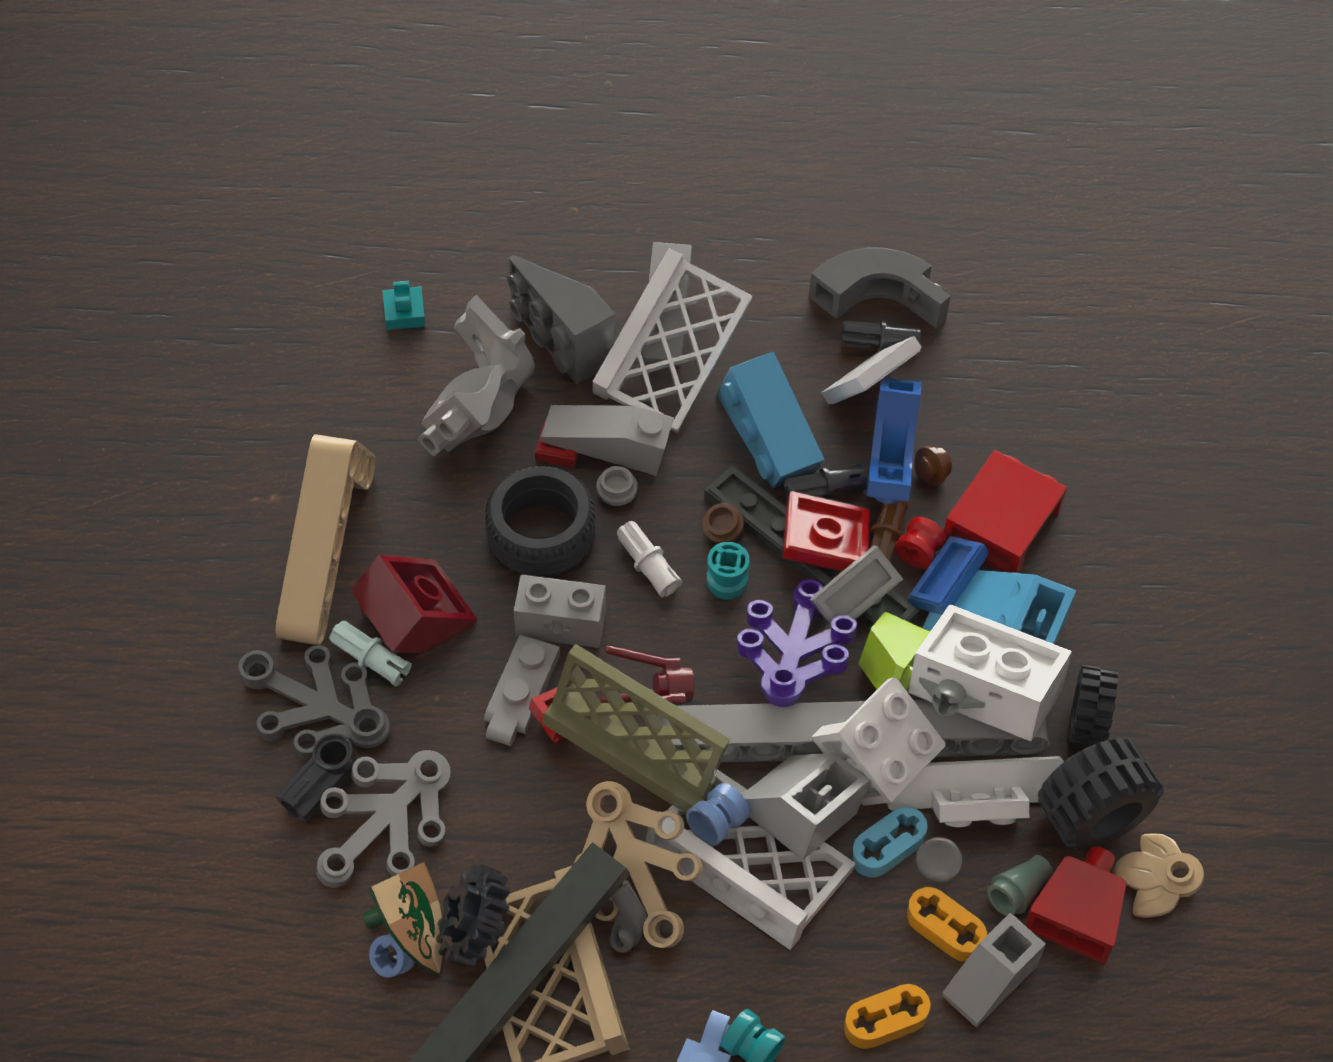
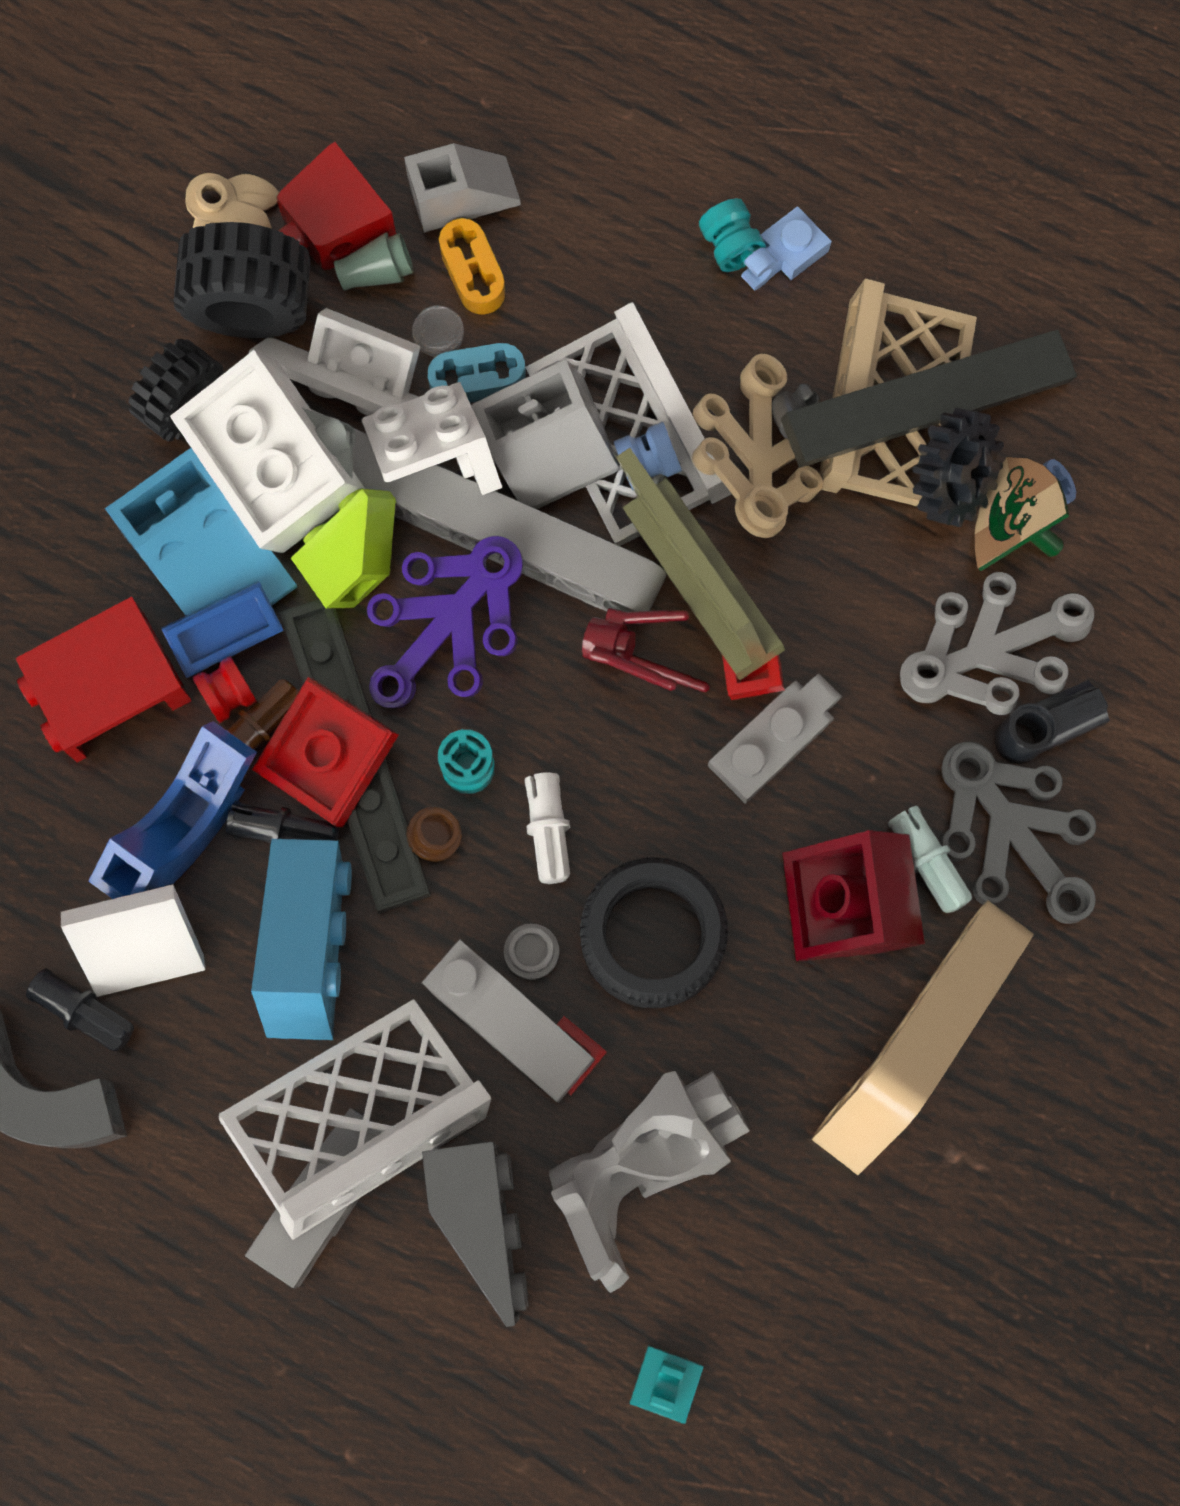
camera: 150 degrees left, 20 degrees up
(560, 611) = (689, 797): light grey brick -> none
(857, 586) = (340, 651): light grey tile -> none
(890, 1026) = (585, 208): light orange beam -> none
(932, 465) = (141, 786): reddish brown plate -> none

